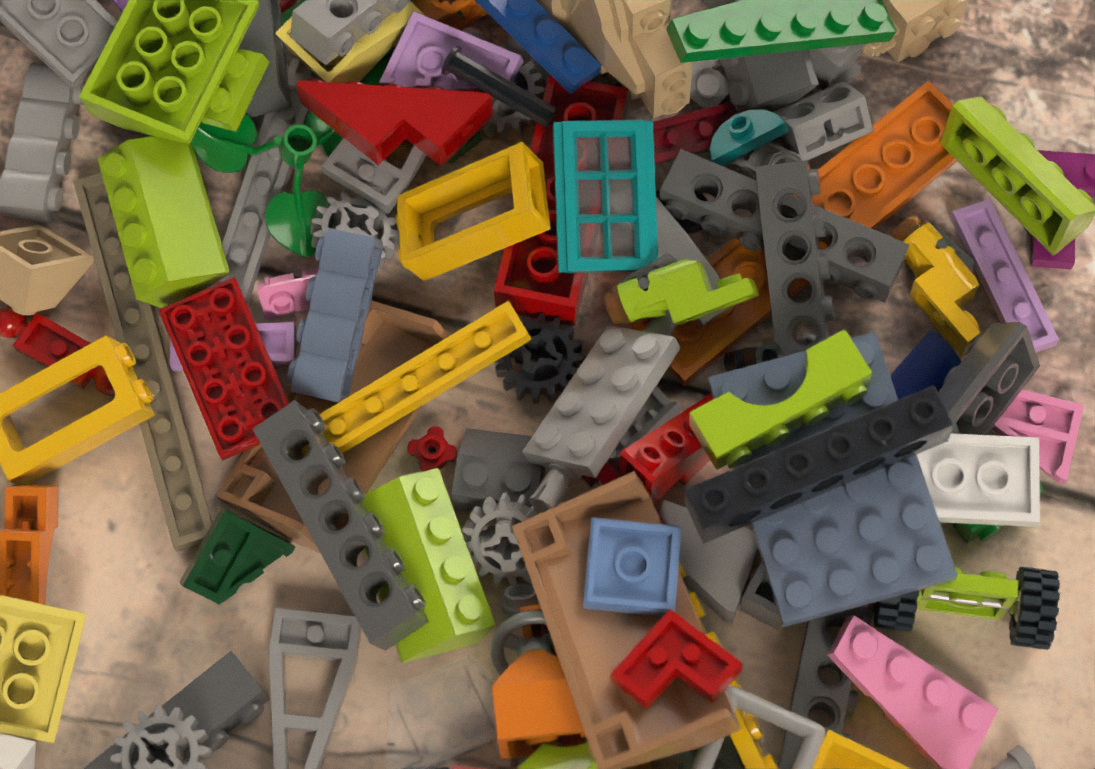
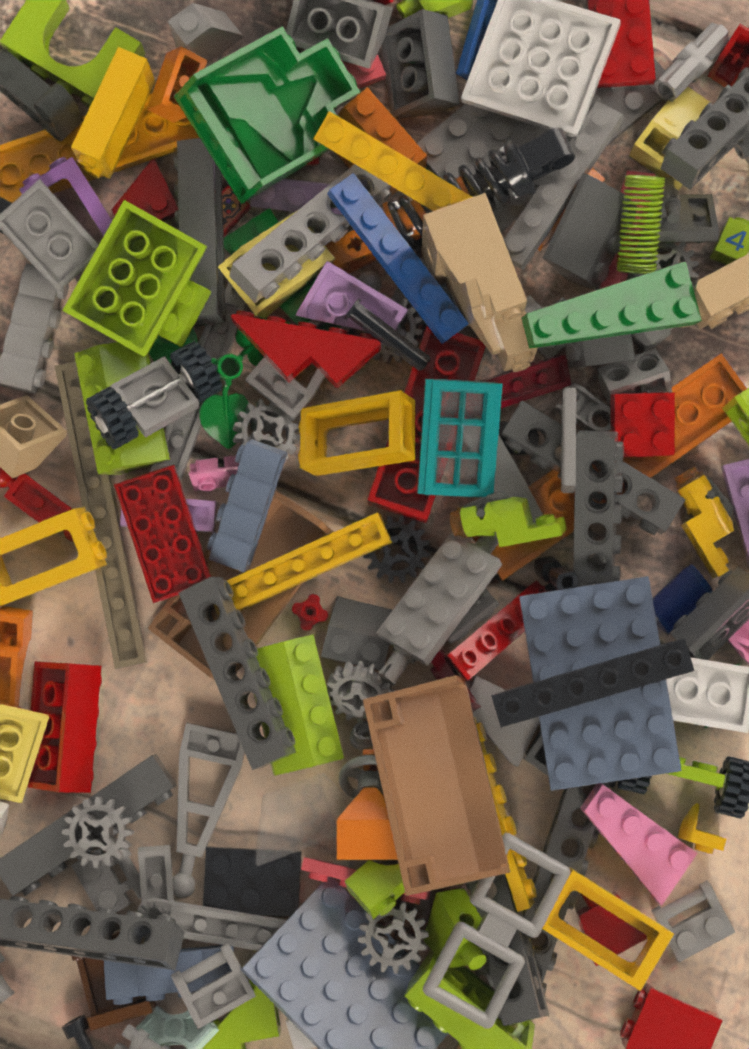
camera: 10 degrees right, 15 degrees up
(115, 652) = (68, 745): none -> red slope
(204, 187) = (154, 395): none -> plate
(231, 556) = (156, 680): dark green wing -> none
(632, 567) = (446, 742): medium blue tile -> none
(671, 651) = (467, 812): red plate -> none
(734, 428) = (610, 613): lime arch -> none
(745, 133) = (585, 382): teal plate -> none
(747, 178) = (568, 441): none -> light grey tile
(846, 163) = (644, 423): none -> red plate
(1004, 688) = (703, 840): none -> yellow plate

